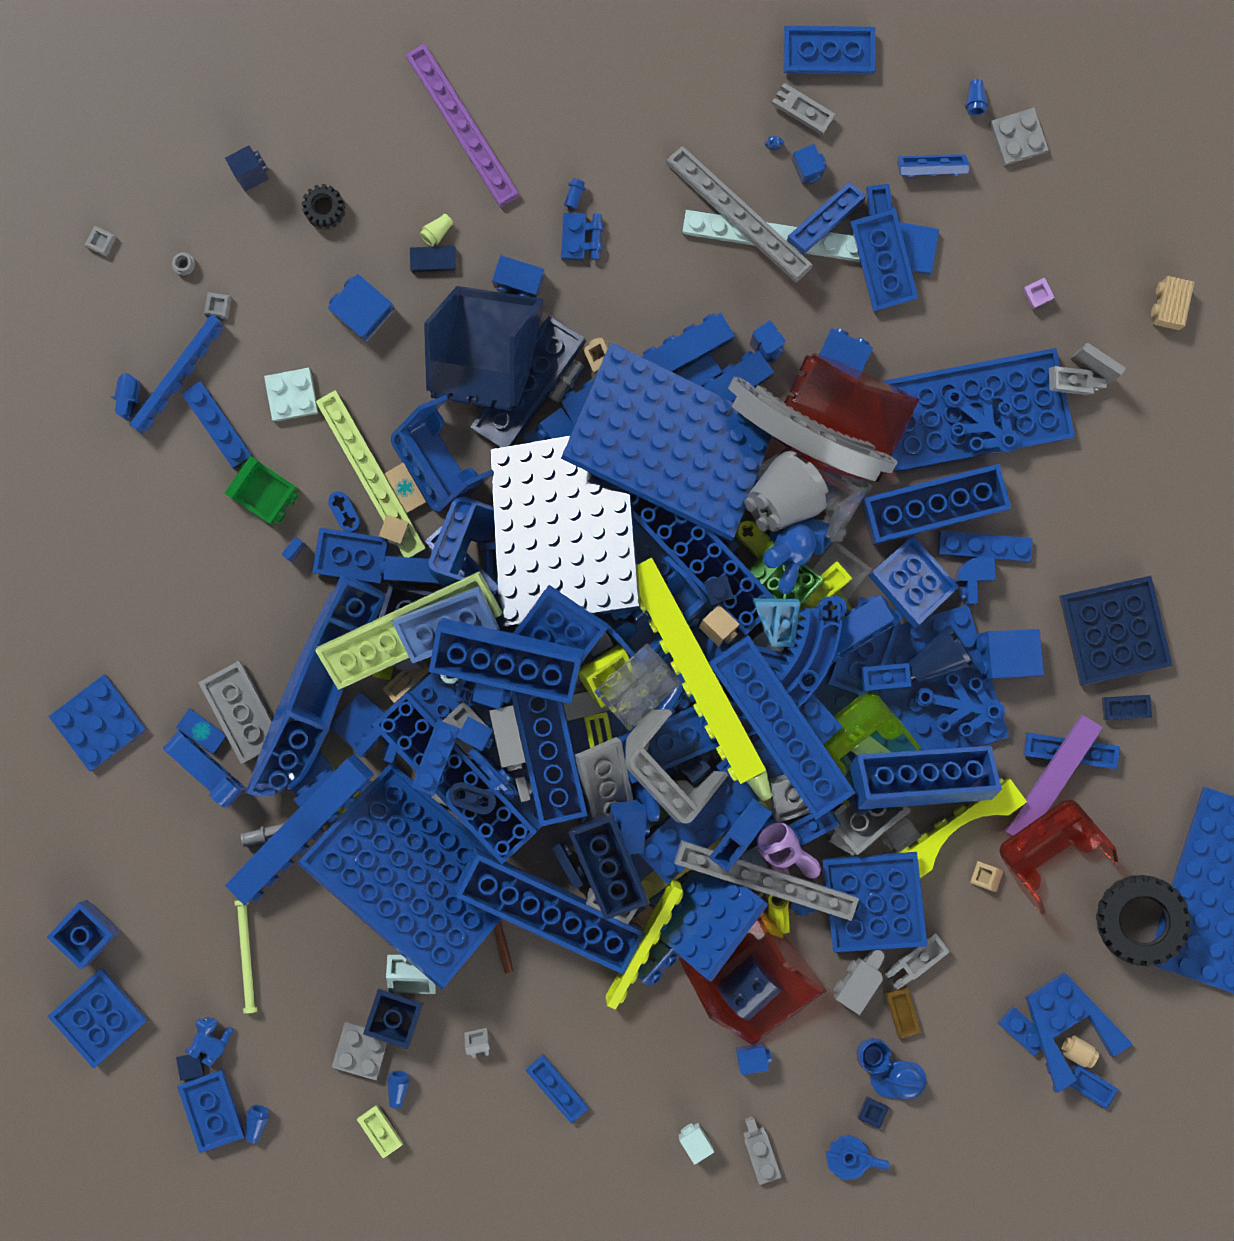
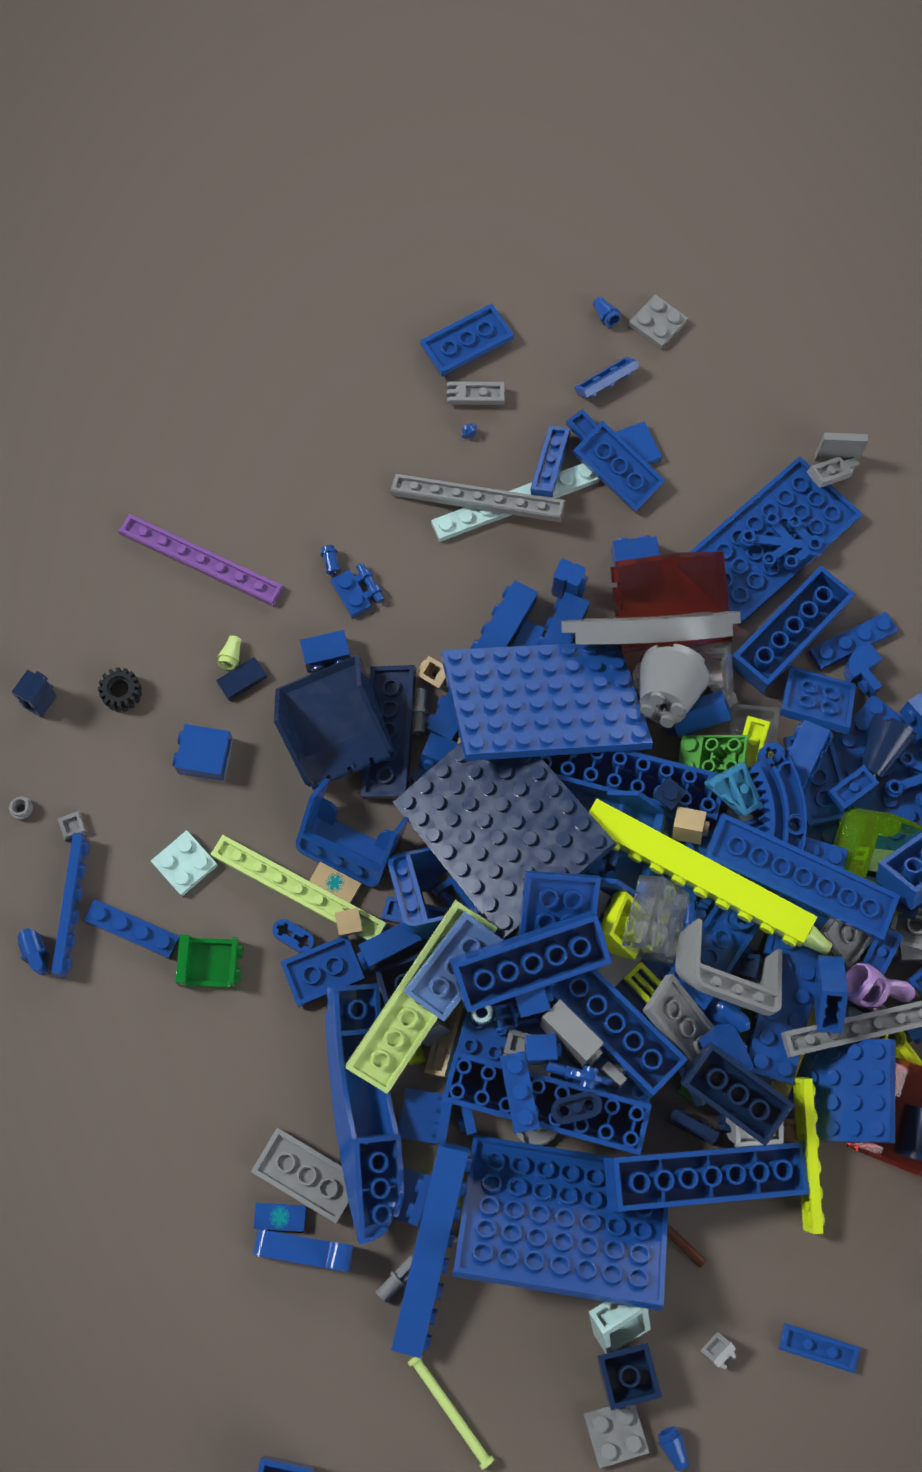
camera: 35 degrees left, 15 degrees down
(97, 722) = (175, 1272): blue plate -> none
(293, 549) = (267, 995): blue tile -> none
(652, 970) = (831, 1158): blue hinge -> none
(757, 542) = (666, 746): neon yellow piece -> none
(793, 549) = (706, 726): blue piece -> none
(809, 164) = (508, 430): blue brick -> none
(1038, 293) = (755, 424): lavender plate -> none
(1172, 302) = (863, 373): tan brick -> none

